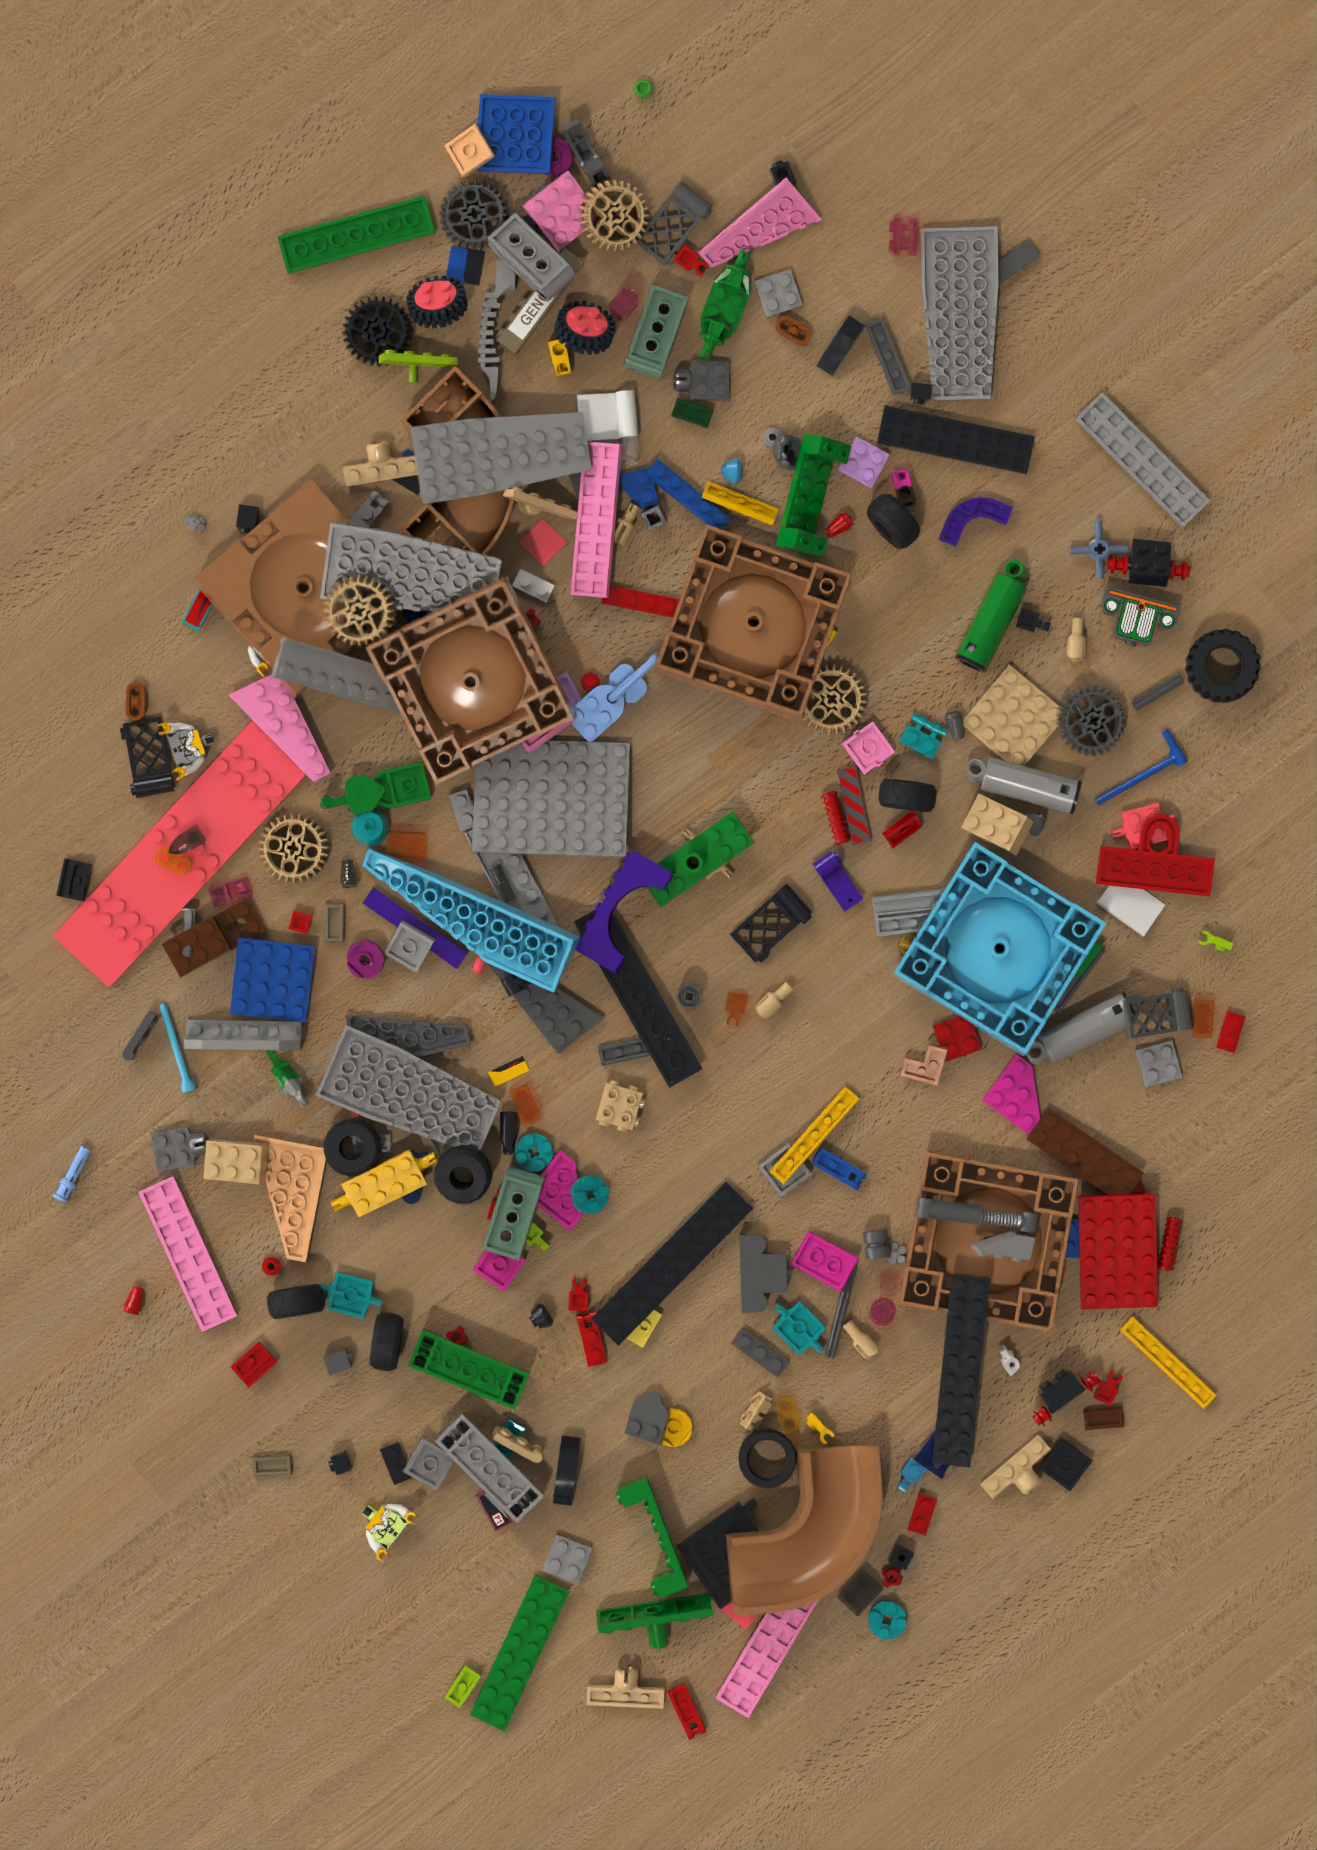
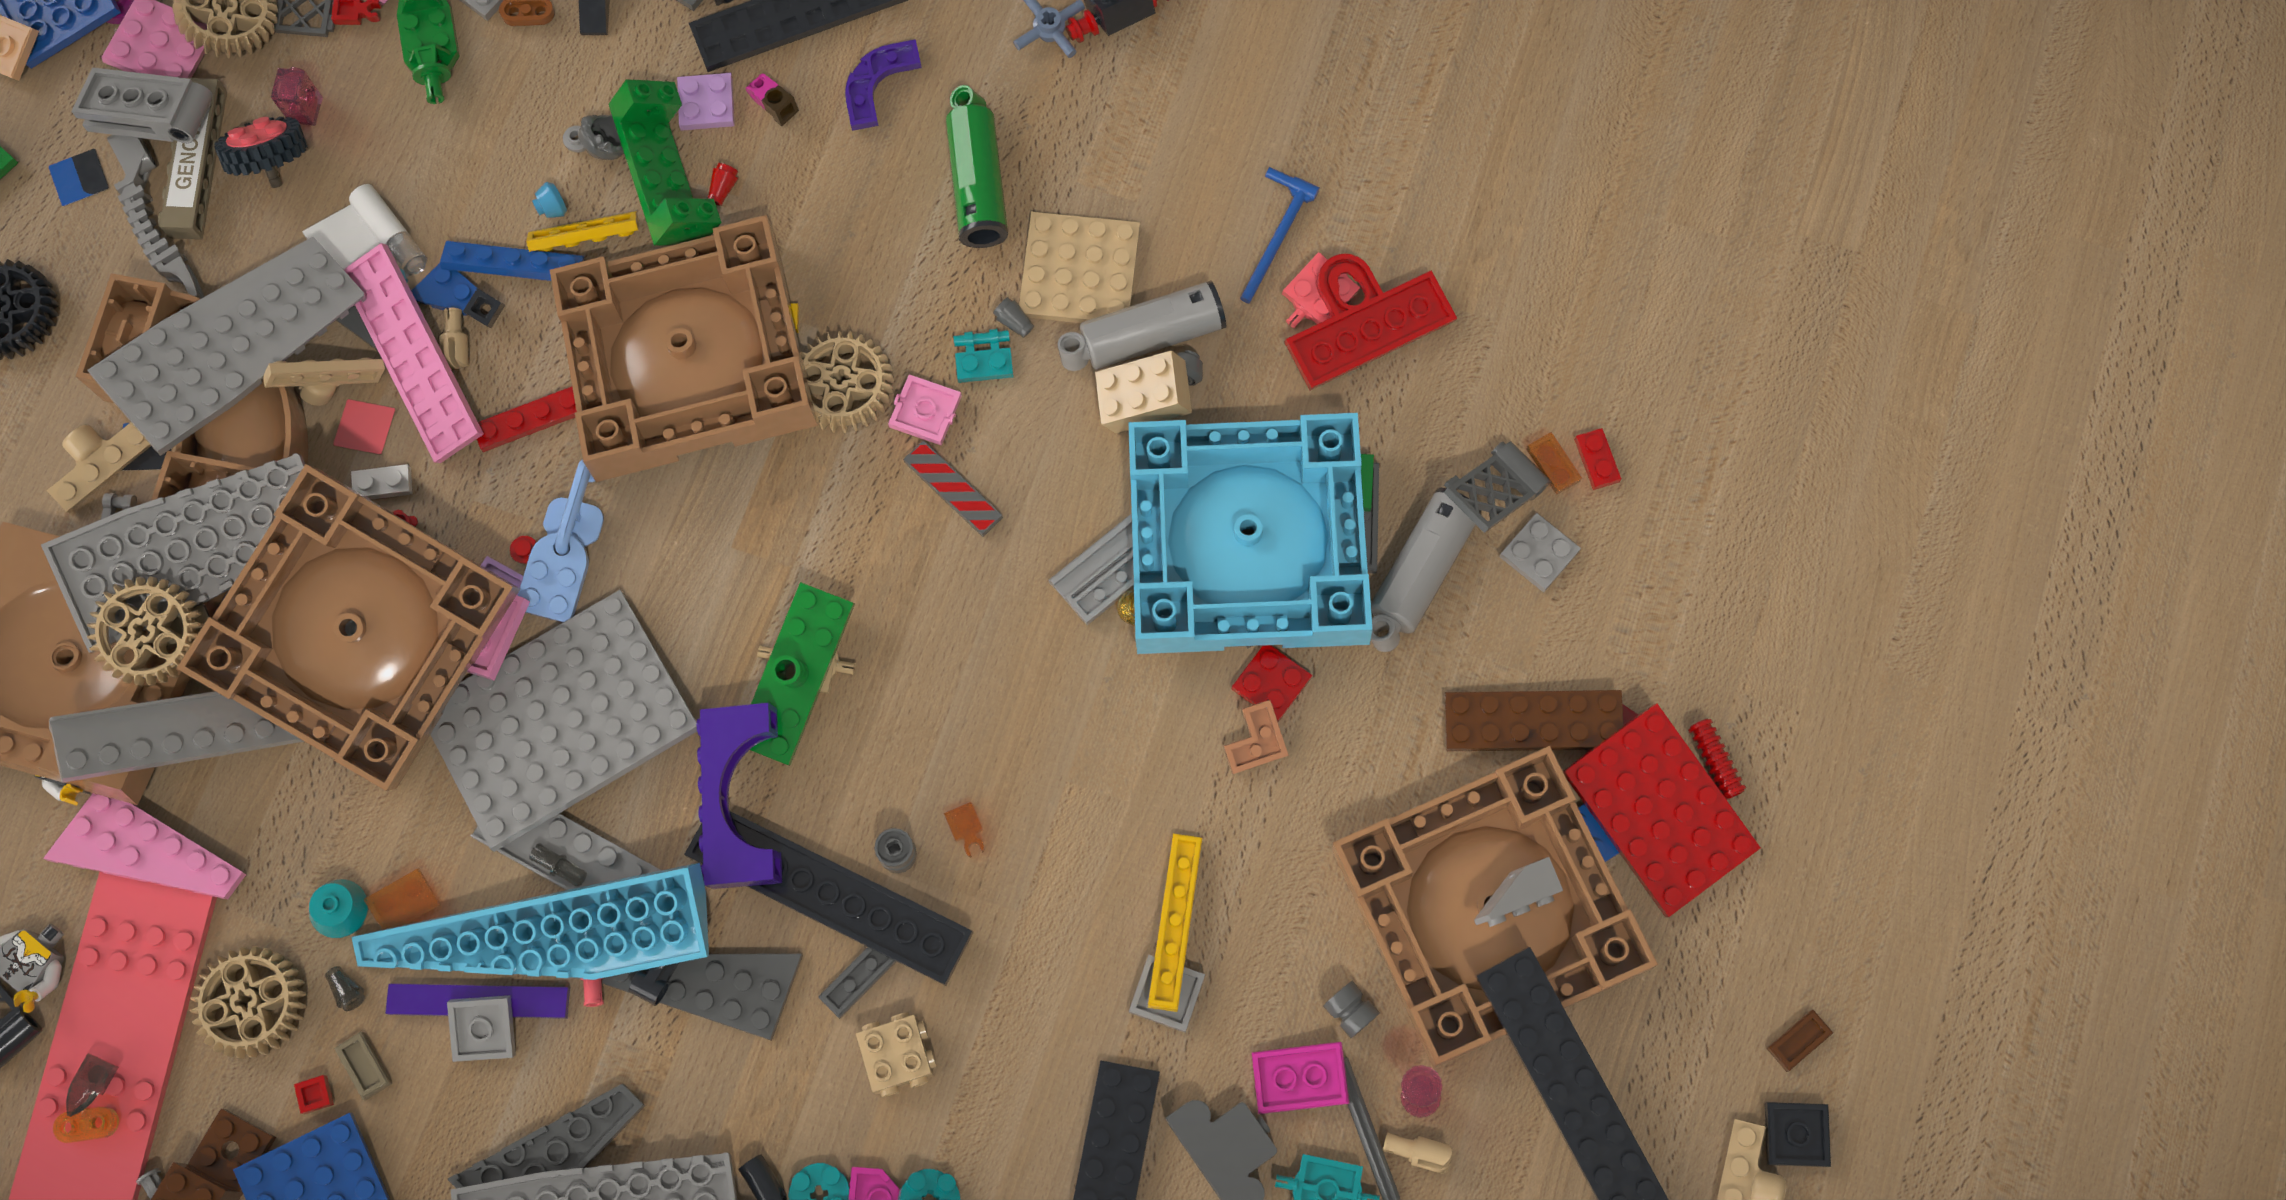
camera: 30 degrees left, 15 degrees down
(230, 891) = (195, 1116): clear pink slope -> none
(376, 957) = (446, 1074): magenta plate -> none
(402, 786) = (300, 869): green plate -> none
(409, 358) = (60, 309): lime plate -> none
(437, 302) = (55, 226): black wheel -> none
(463, 809) = (450, 807): light grey plate -> none
(483, 216) = (48, 114): dark grey gear -> none
(508, 1071) = (719, 1108): yellow sticker -> none
(525, 1105) = (768, 1137): clear orange plate -> none
(559, 358) = (254, 202): yellow leg -> none
(653, 362) = (355, 103): sand green hinge -> none
(692, 413) = (460, 169): dark green plate -> none
(704, 380) = (451, 126): flat silver plate -> none
(772, 1001) = (1008, 788): tan arm -> none
(790, 905) = (953, 656): black piece -> none
(835, 817) = (939, 515): red piece -> none
(837, 880) = (977, 584): dark purple door -> none
(838, 1168) = (1235, 944): blue plate -> none
(893, 521) = (780, 131): black tyre -> none
(895, 1254) = (1386, 1006): light grey plant -> none
(902, 829) = (1031, 476): red plate -> none
(907, 795) = (1008, 426): black tyre -> none
(974, 1214) = (1451, 879): dark grey piece -> none
(1006, 1358) = (1621, 1044): white piece -> none
(1016, 1095) = (1394, 705): dark pink plate -> none
(1029, 621) = (1022, 150): black plate -> none
(1062, 1391) = (1724, 1040): black brick -> none
(1076, 641) = (1093, 138): tan arm -> none
(1099, 721) = (1148, 183): dark grey gear -> none
(1107, 1391) = (1778, 1000): red plate -> none
(1131, 906) = (1373, 391): white piece -> none
(1137, 616) = (1145, 66): brick -> none
(1157, 691) = (1228, 134): dark grey axle -> none
(1168, 1362) = (1825, 911): yellow tile -> none
(1196, 666) = (1287, 25): black tyre -> none
(1220, 944) = (1509, 363): lime plate -> none

